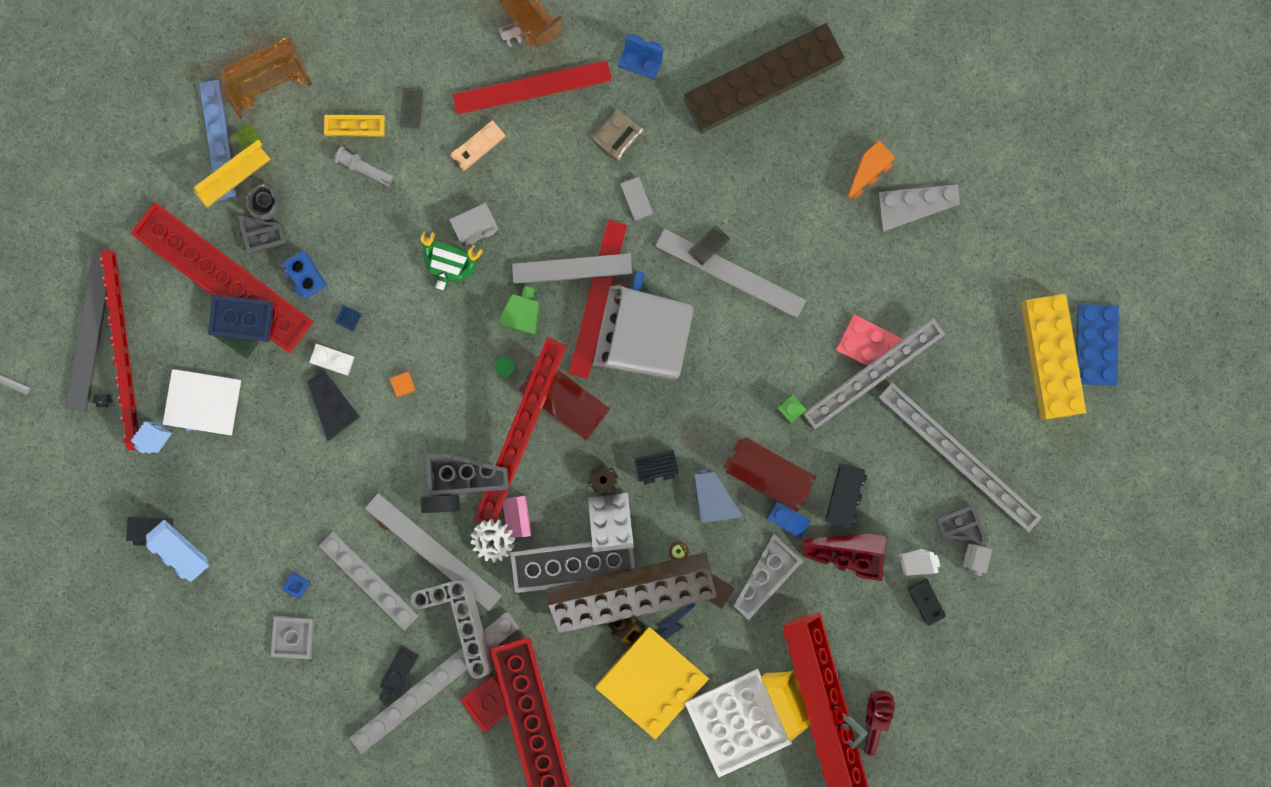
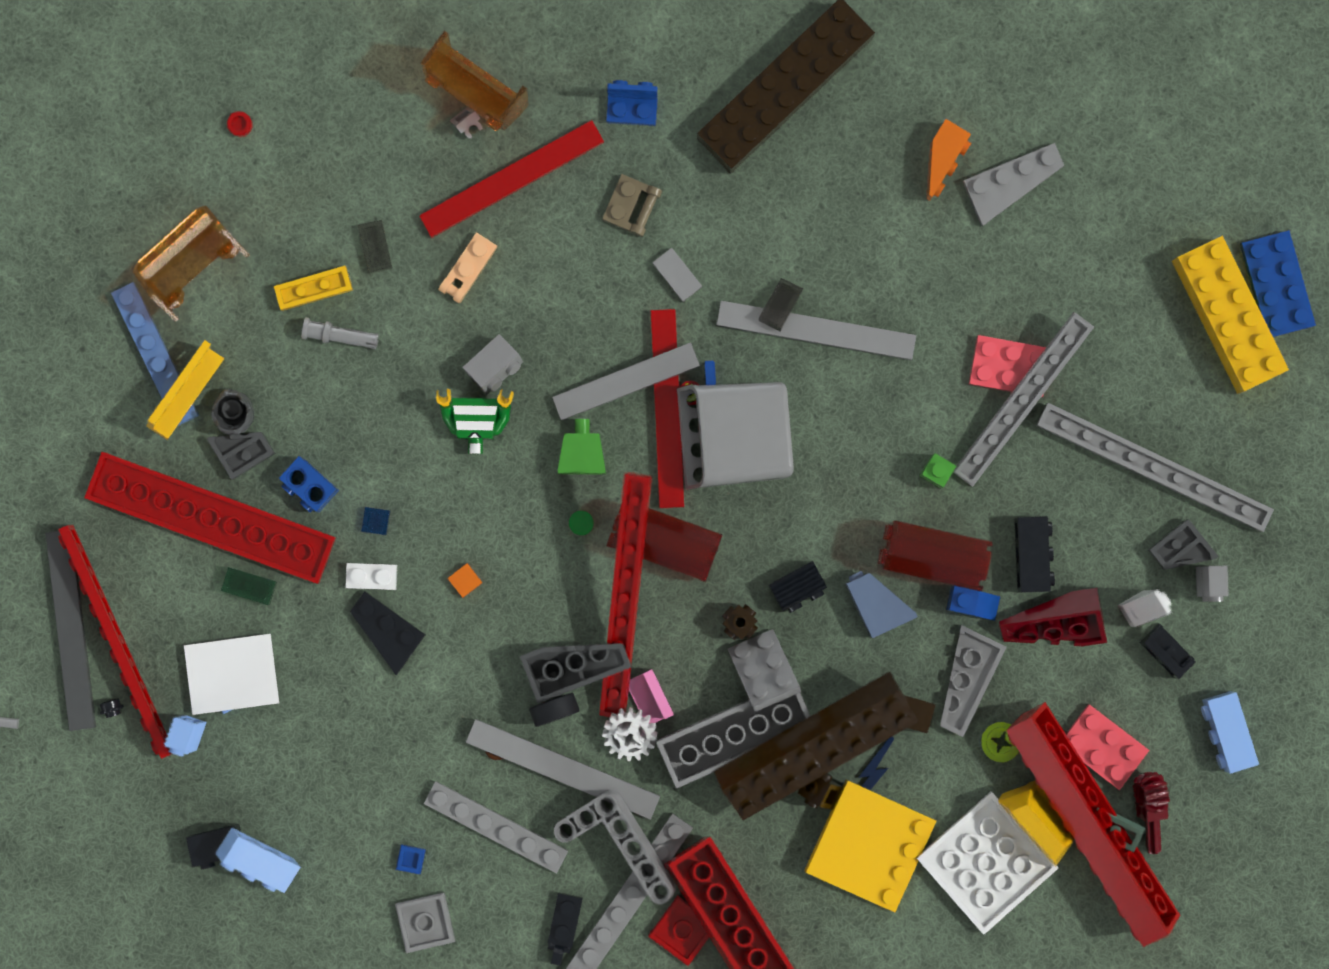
camera: 15 degrees left, 0 degrees up
(241, 318) = (248, 560): dark blue tile -> none
(247, 136) = (189, 340): clear neon green tile -> none
(678, 550) = (854, 679): tile -> none
(766, 633) = (990, 748): none -> lime gear
(856, 661) = (1105, 747): none -> coral plate
(955, 678) = (1229, 732): none -> light blue brick

